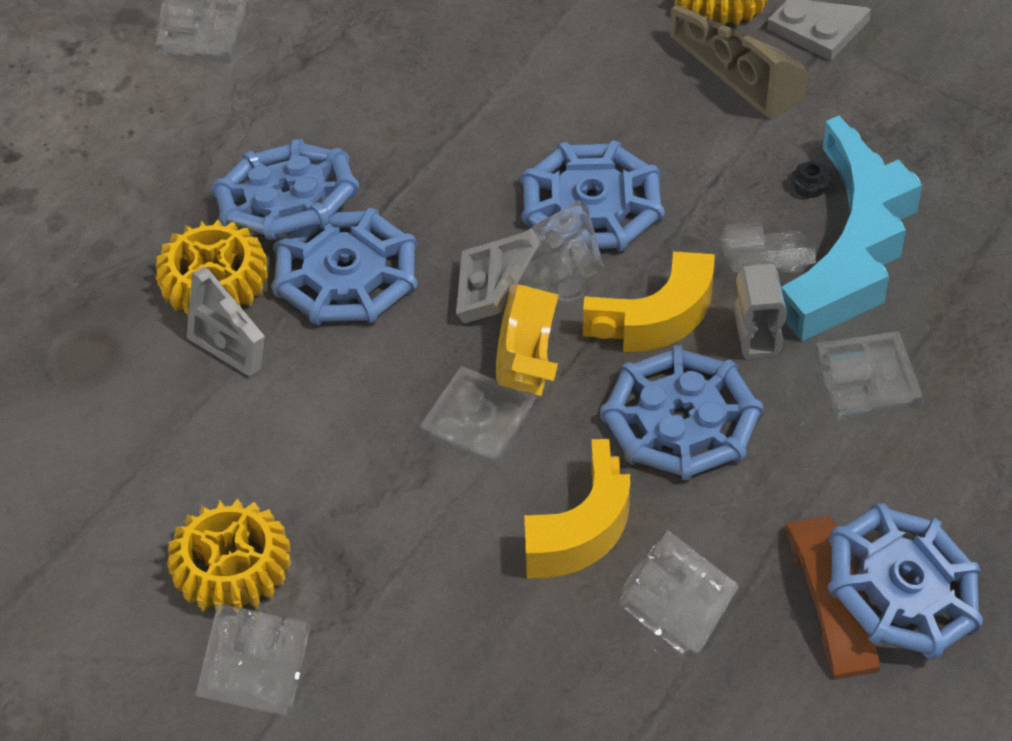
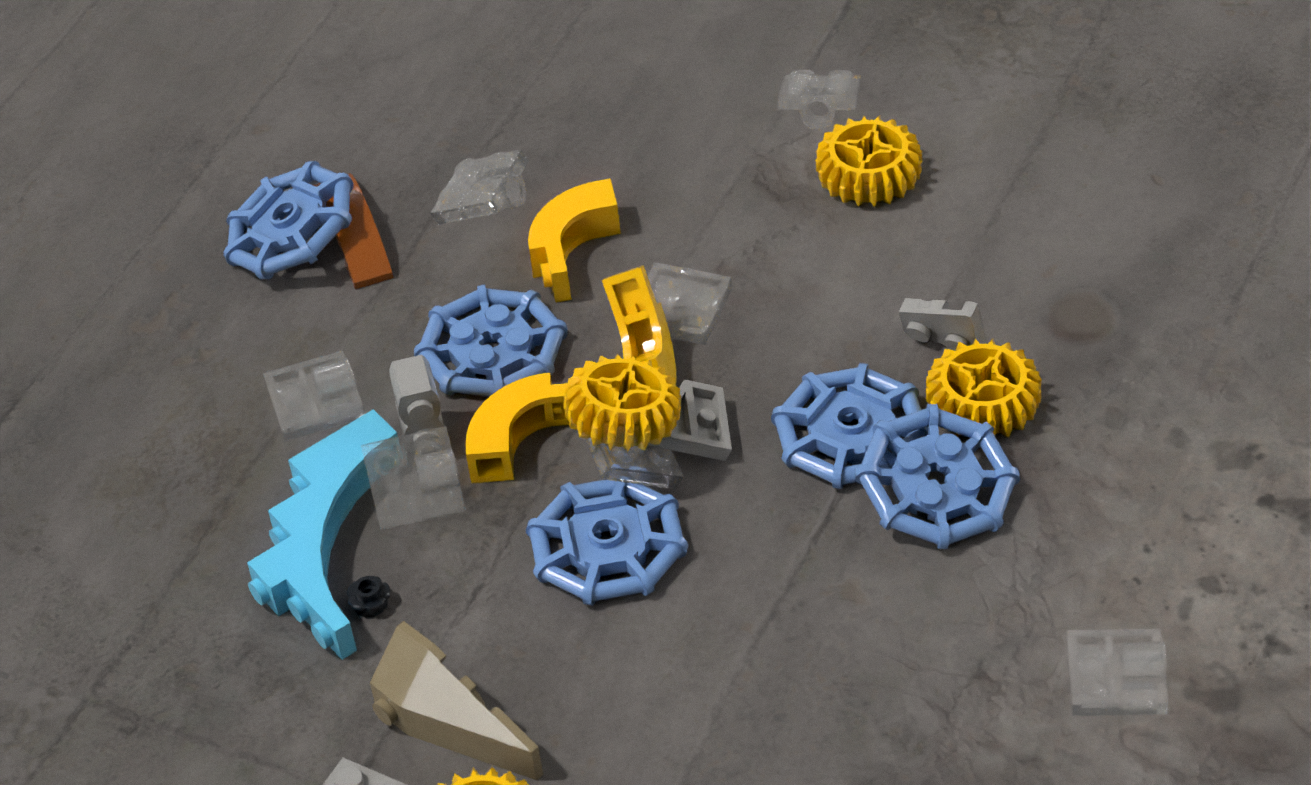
camera: 175 degrees right, 5 degrees down
(566, 241) = (622, 402): none -> yellow gear

